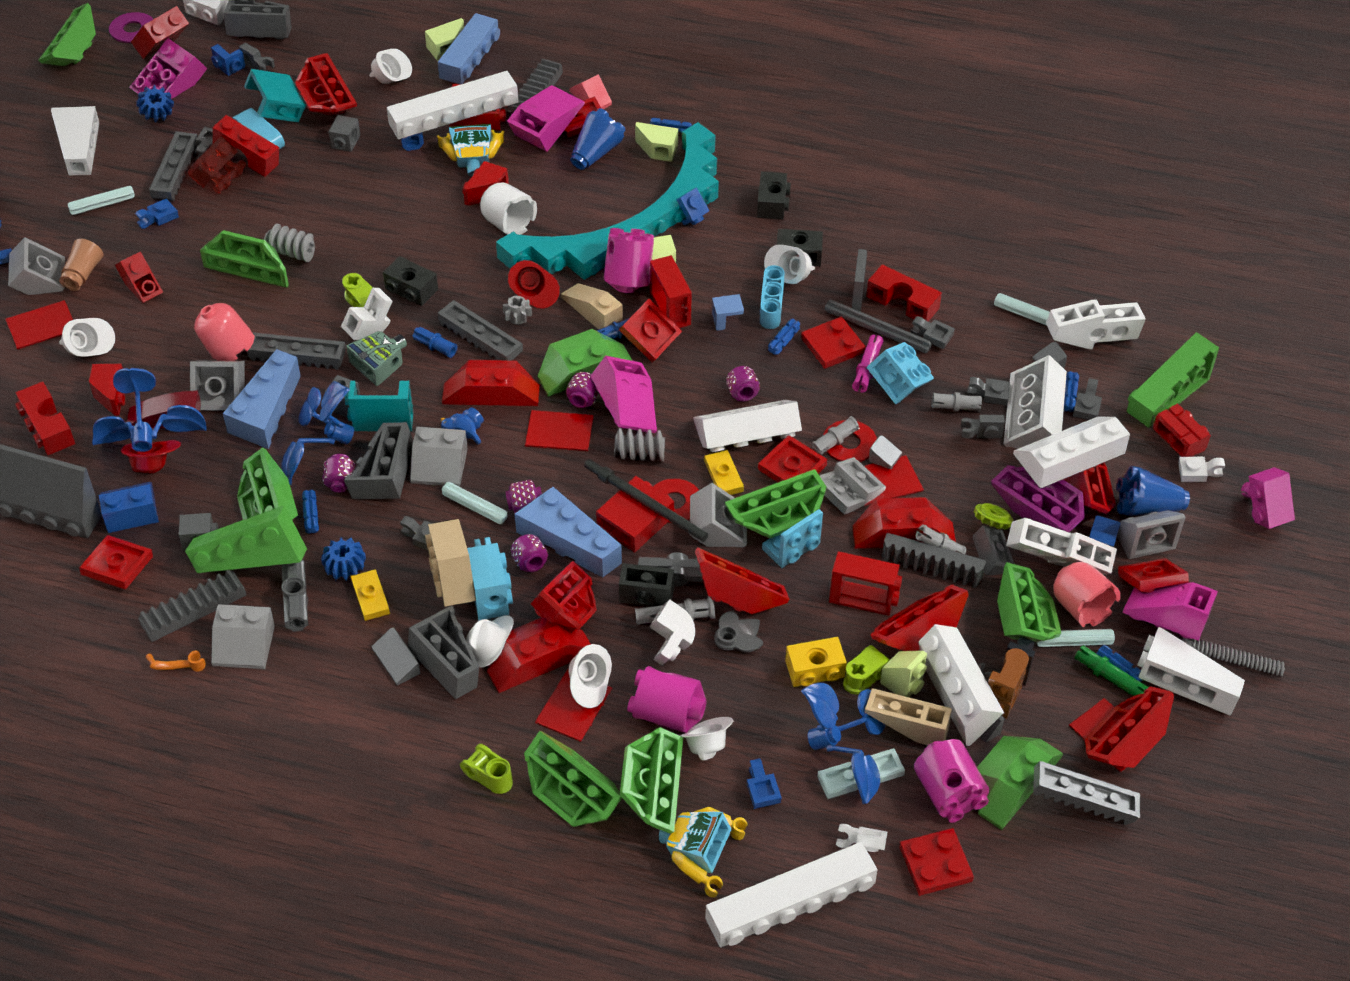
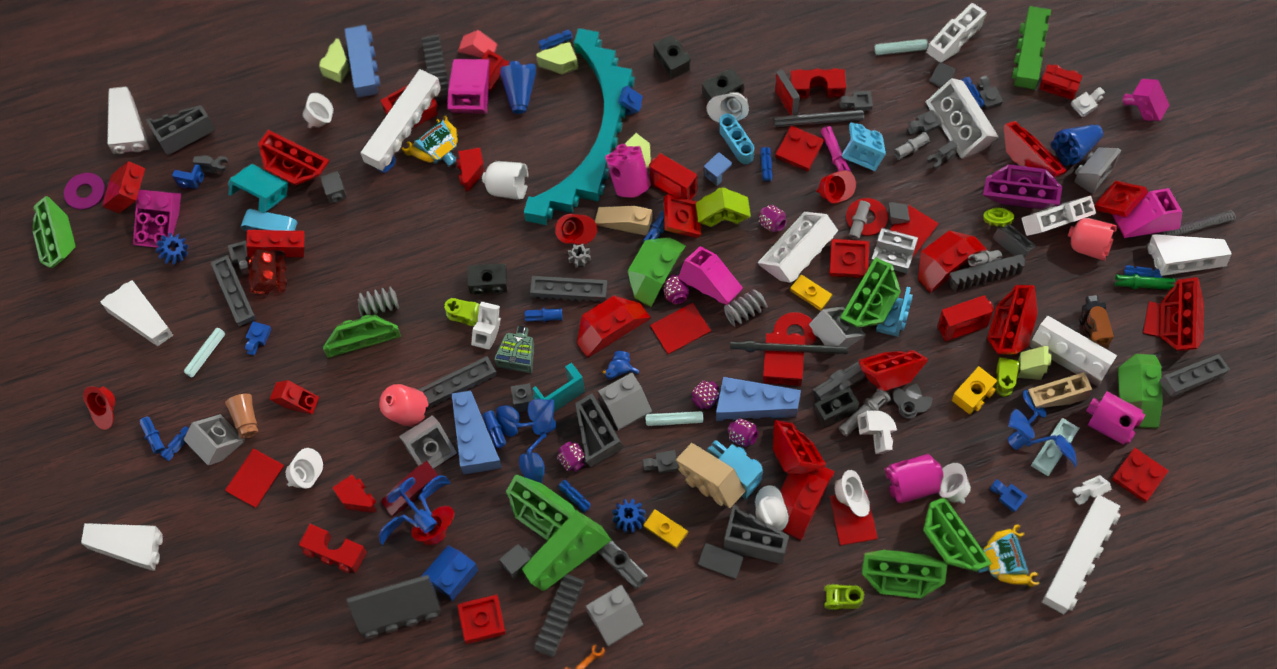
camera: 30 degrees left, 15 degrees up
(291, 408) = (494, 429): none -> blue axle
(701, 342) = (721, 206): none -> lime brick
(839, 392) = (837, 186): none -> red piece
(1026, 606) = (1068, 272): bright green wedge -> none
(1073, 450) = (1020, 142): white slope -> none
(1081, 637) = (1105, 271): light aqua axle -> none
(1105, 530) = (1070, 187): blue bracket -> none

